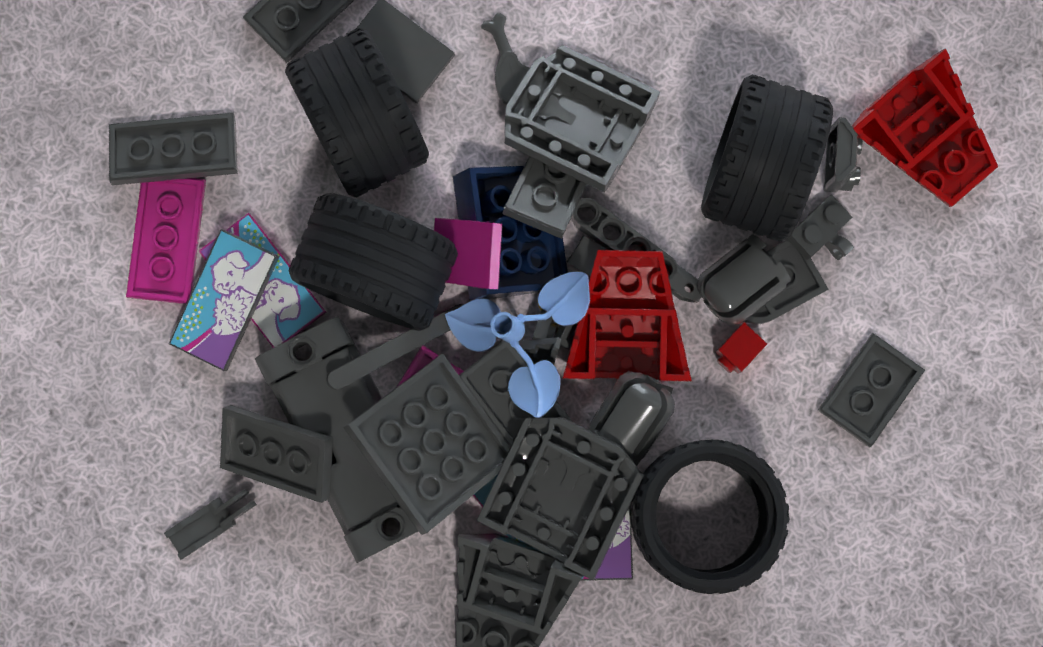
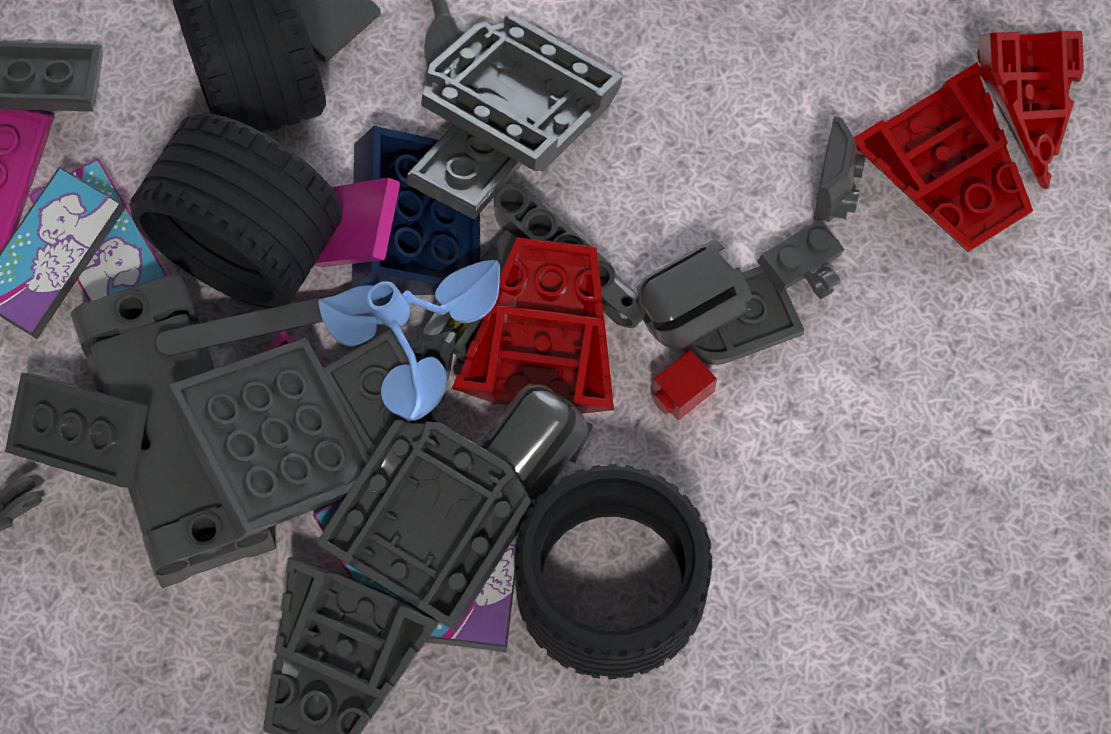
camera: 10 degrees right, 15 degrees down
(767, 158) = (735, 148): black tyre -> none
(871, 390) = (845, 459): dark grey tile -> none
(986, 58) = (1032, 86): none -> red wedge

